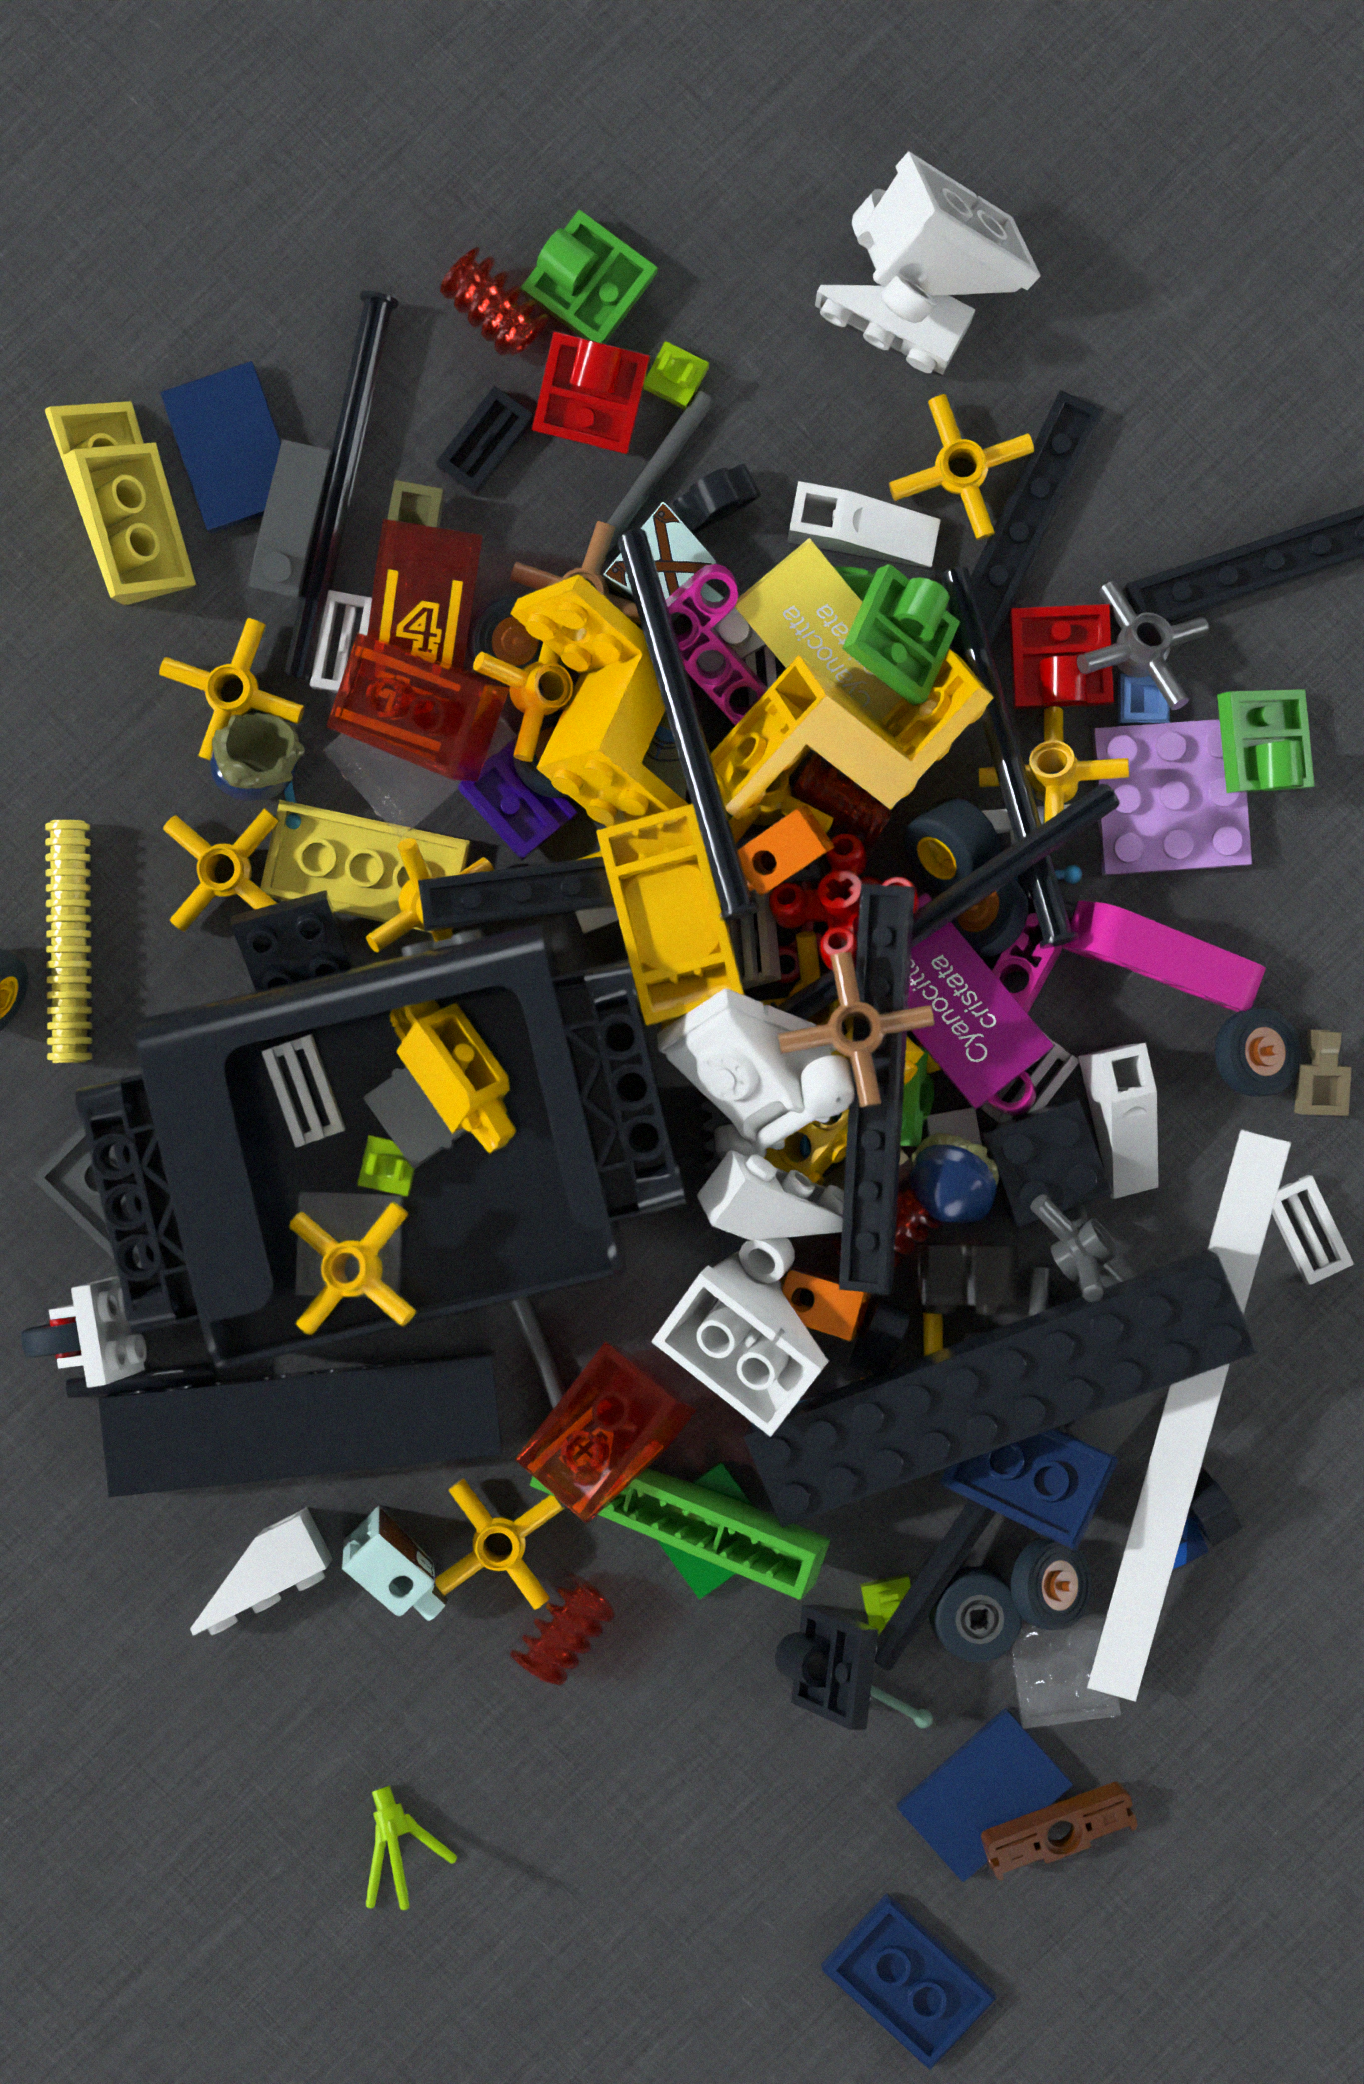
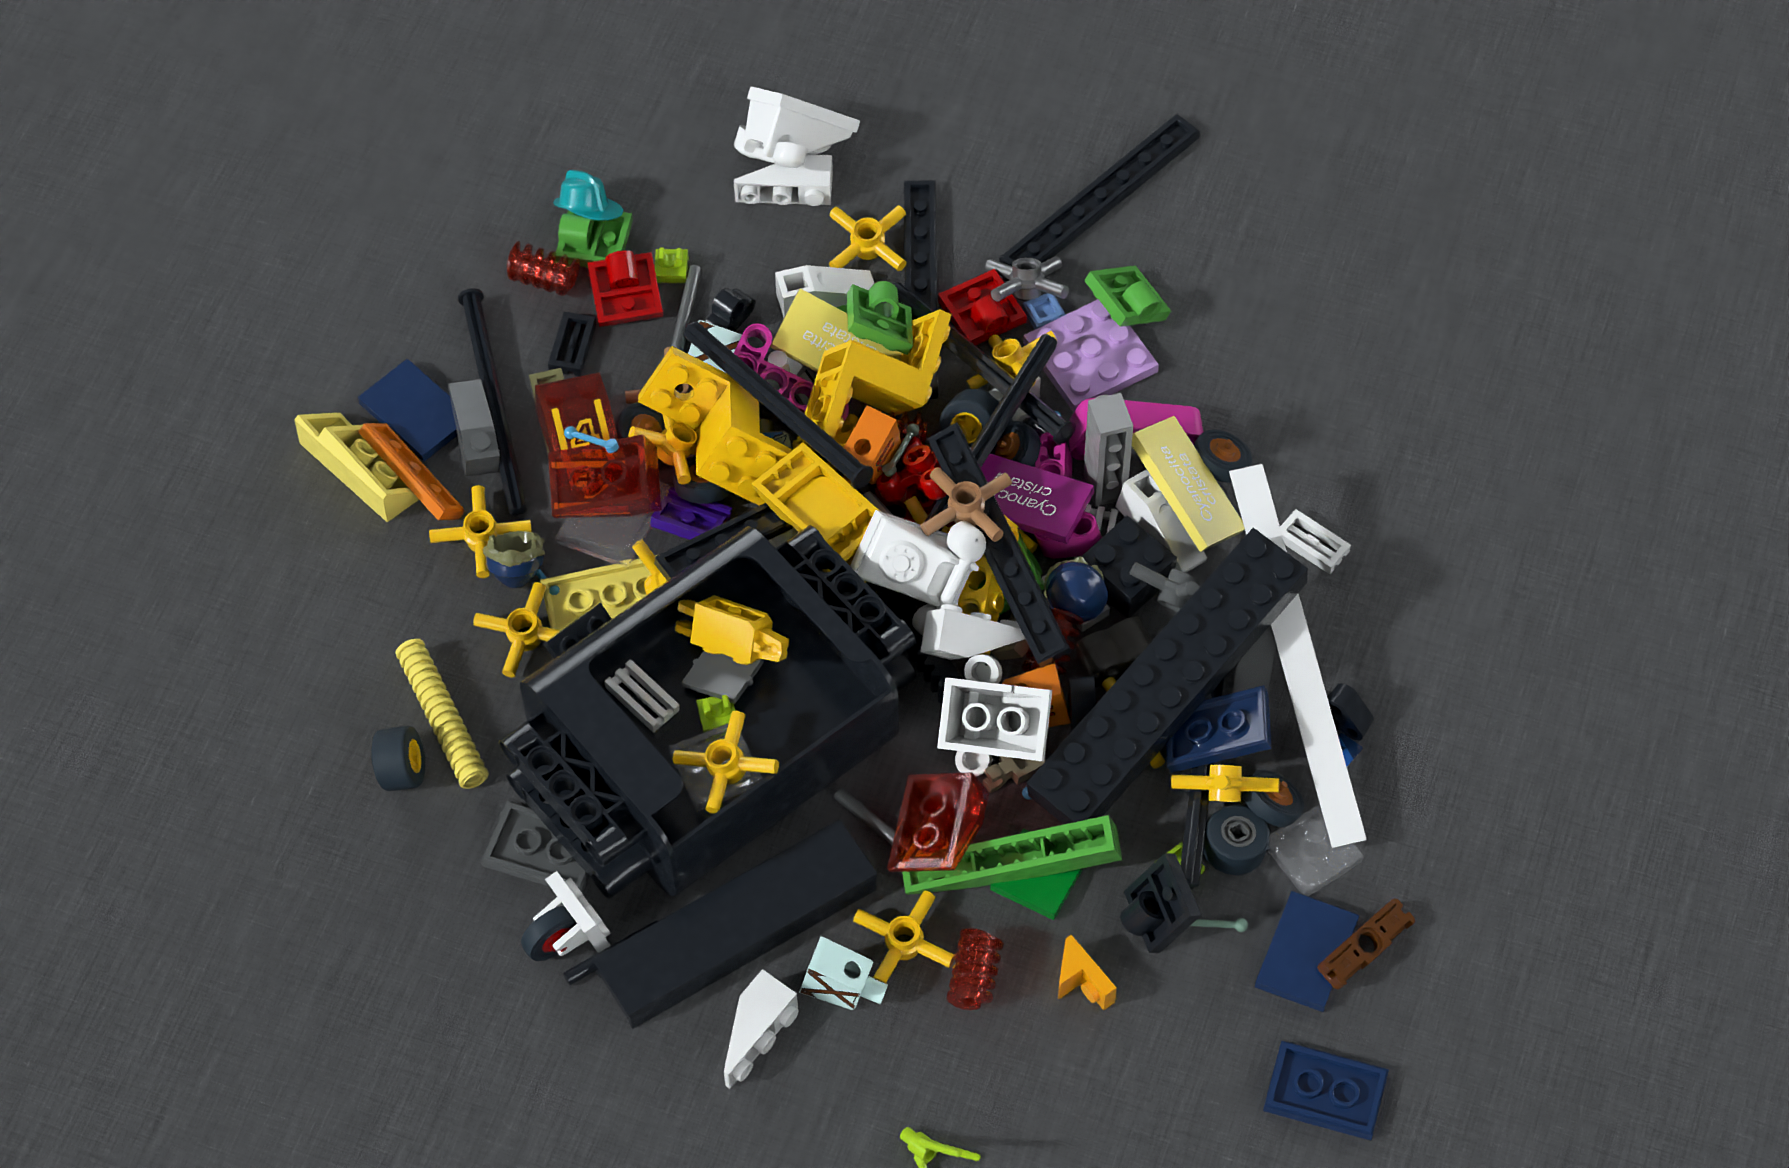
camera: 25 degrees left, 30 degrees down
(180, 551) = (412, 471): none -> orange tile
(325, 636) = (531, 457): white tile -> none
(434, 678) = (610, 445): none -> dark azure hinge
(604, 218) = (587, 197): none -> teal piece
(689, 1689) = (1081, 969): none -> light orange slope
(797, 885) = (890, 468): none -> sand green hinge
(995, 1558) = (1225, 783): none -> yellow bar
(1102, 1003) = (1107, 447): none -> light grey brick
(1183, 1088) = (1187, 483): none -> light yellow tile
(1323, 1084) = (1273, 455): dark tan plate -> none

